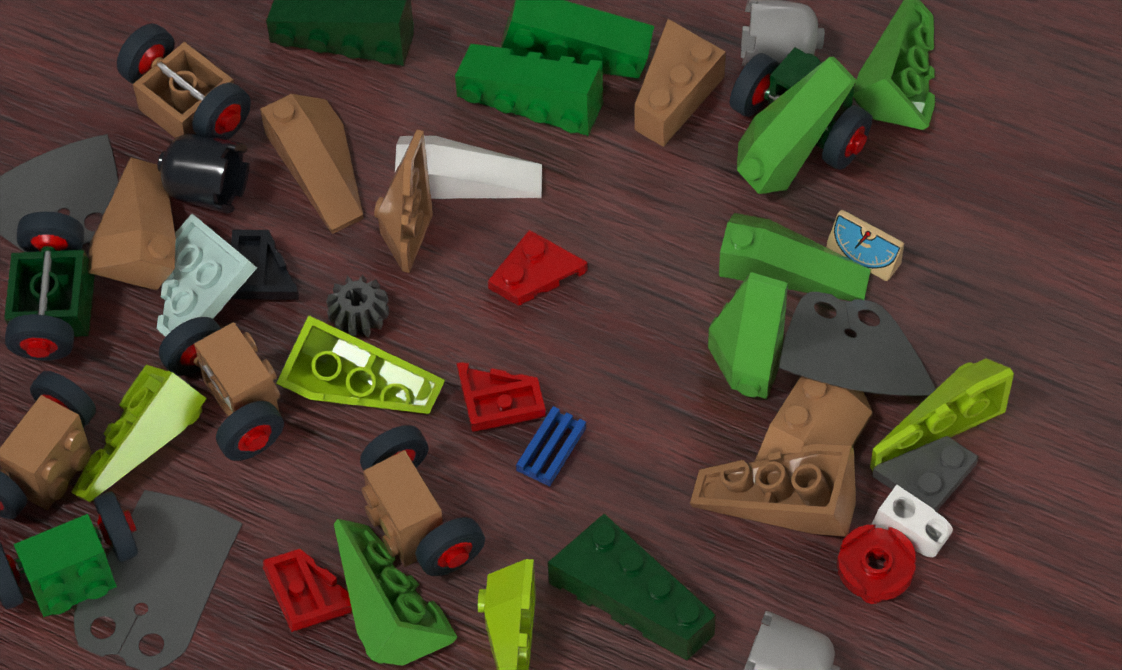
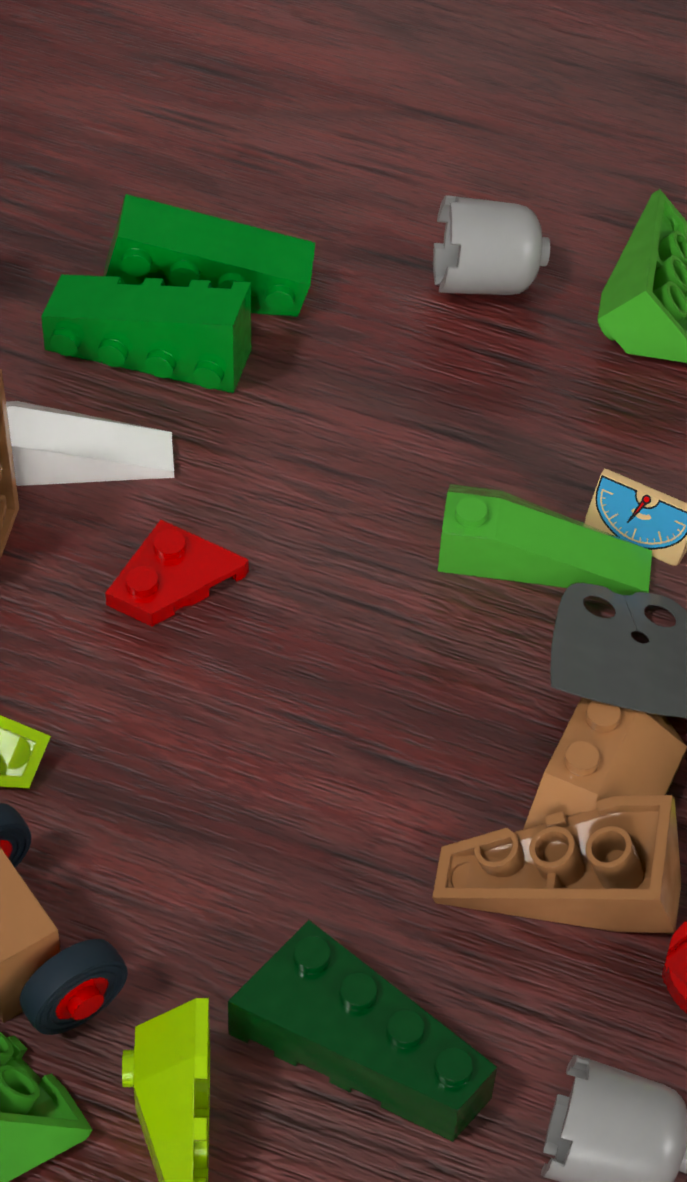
camera: 10 degrees left, 5 degrees down
(499, 397) = (134, 757): red wing -> none
(565, 421) = (233, 788): blue tile -> none
(677, 82) = (353, 315): medium nougat wedge -> none
(750, 335) = (499, 641): bright green wedge -> none
(767, 80) = (536, 329): brick -> none
(791, 126) = (524, 358): bright green wedge -> none

